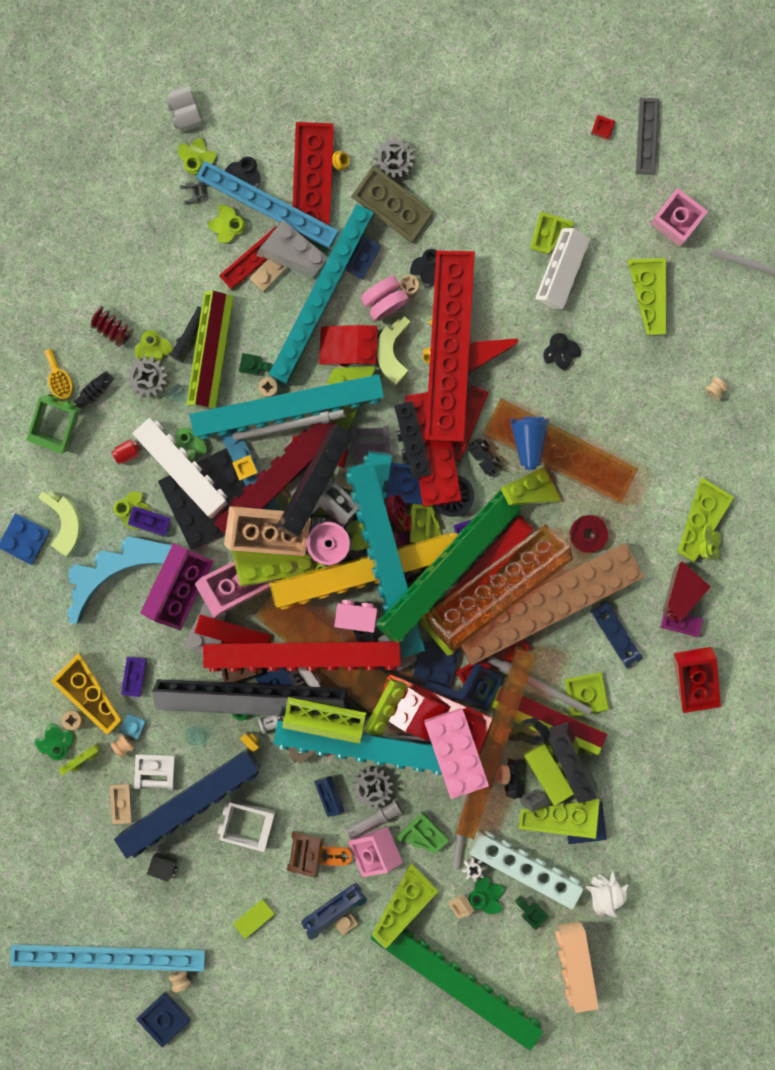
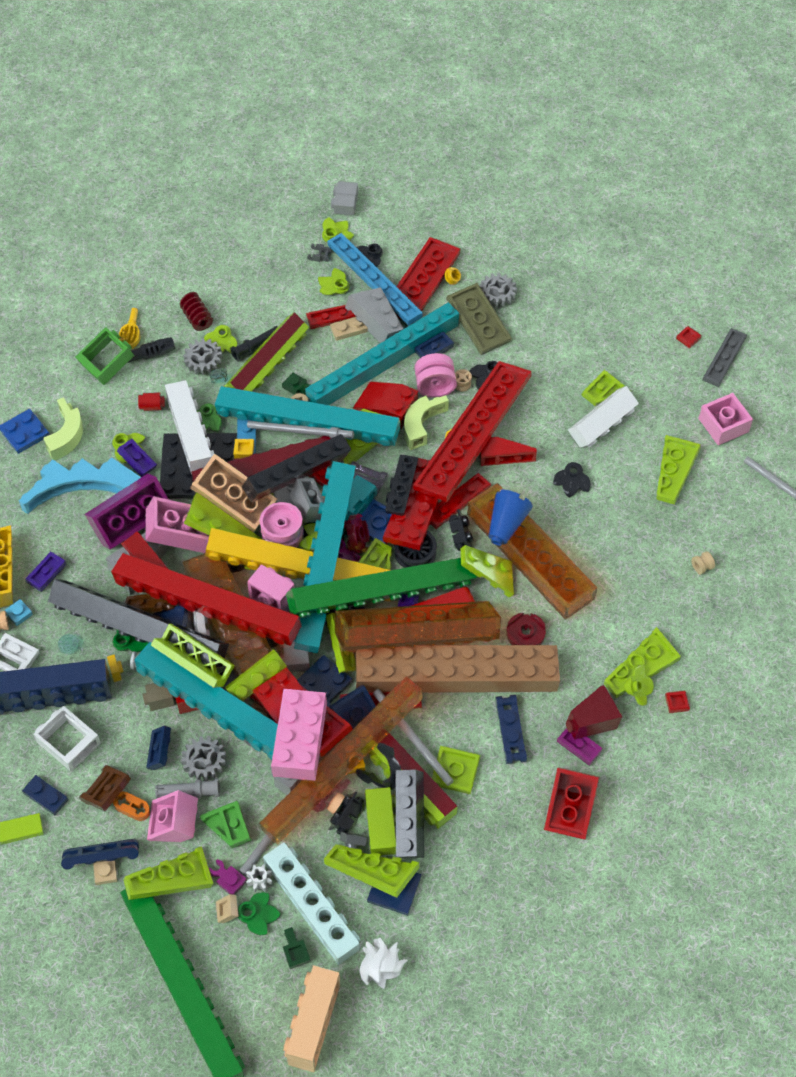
camera: 30 degrees right, 30 degrees down
(256, 880) = (45, 795): none -> dark blue plate
(449, 878) = (229, 879): none -> magenta plate
(746, 540) = (677, 701): none -> red tile

